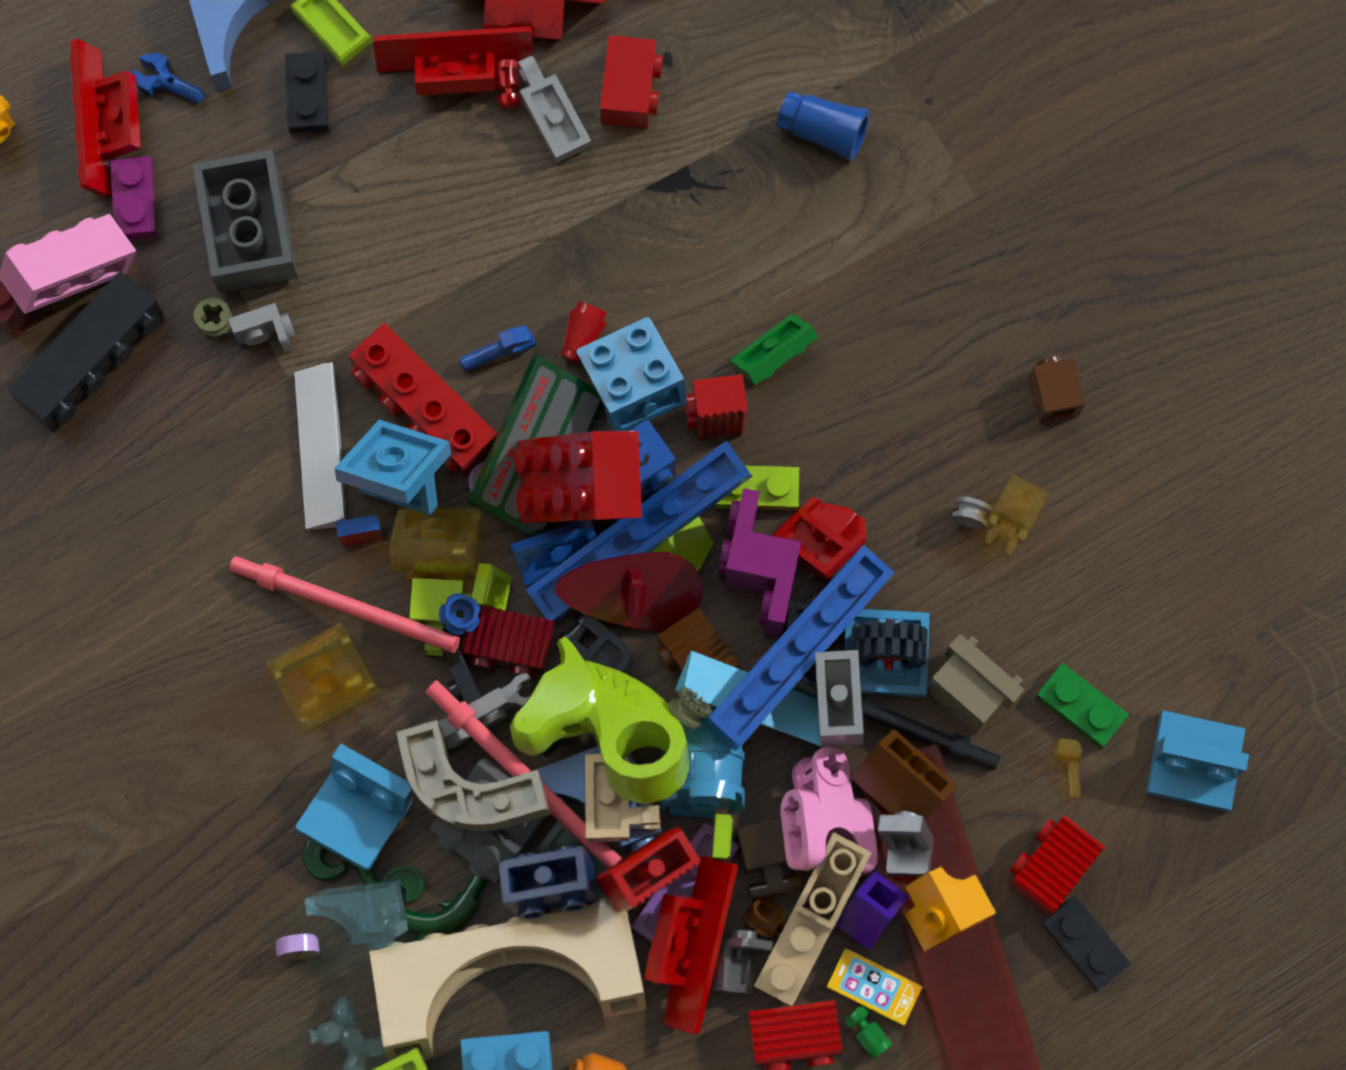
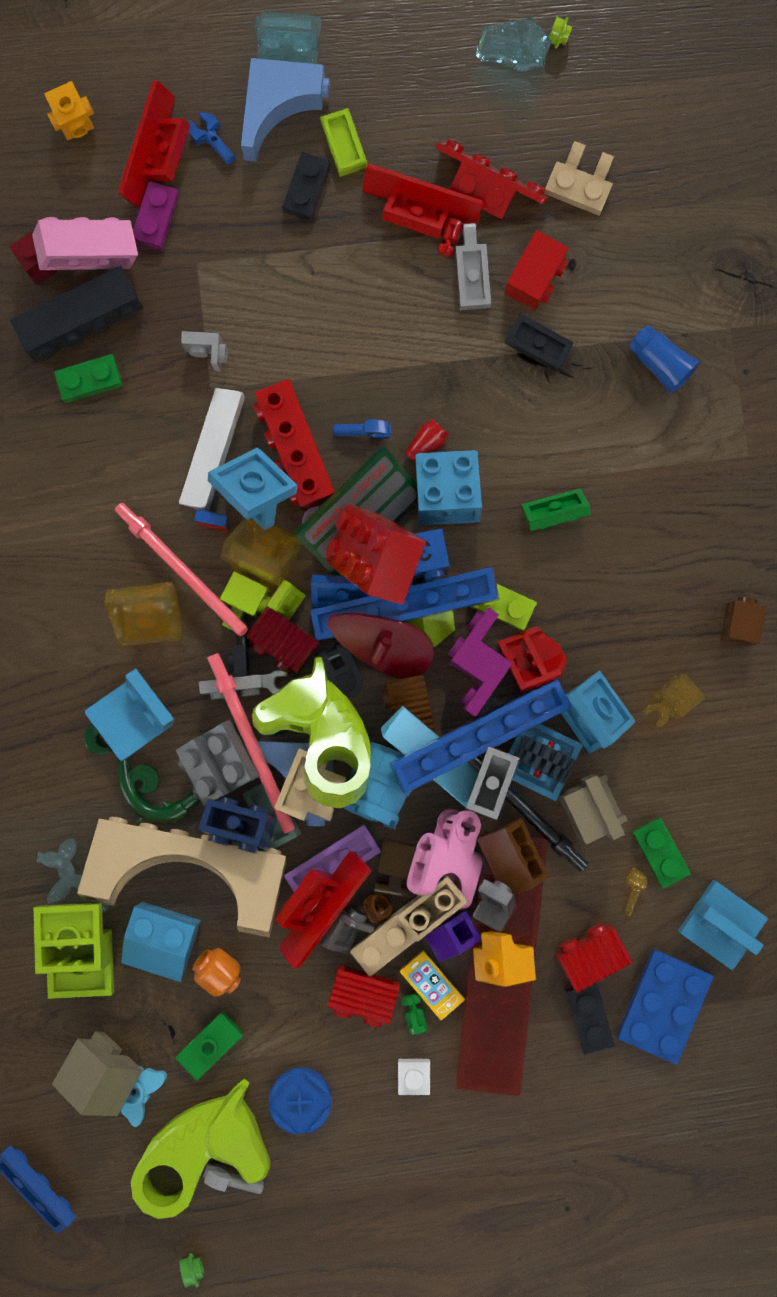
camera: 30 degrees right, 10 degrees up
(130, 424) = (88, 378): none -> green plate
(216, 305) = (166, 321): olive bush -> none
(245, 221) = (222, 263): dark grey brick -> none
(297, 947) = (55, 792): lavender tile -> none
(367, 911) = (107, 788): clear light blue arch -> none
(461, 801) = (196, 746): dark tan plate -> none
(462, 603) = (246, 607): blue plate -> none
(648, 870) = (308, 847): red brick -> none
(667, 163) = (538, 342): none -> black plate
(689, 708) = (382, 750): olive bush -> none
(717, 407) = (497, 536): red brick -> none
(722, 837) = (369, 845): lime tile -> none
(927, 569) = (596, 713): none -> dark azure bracket
(971, 513) = (644, 685): light grey bush -> none
(1170, 890) = (664, 1006): none -> blue plate

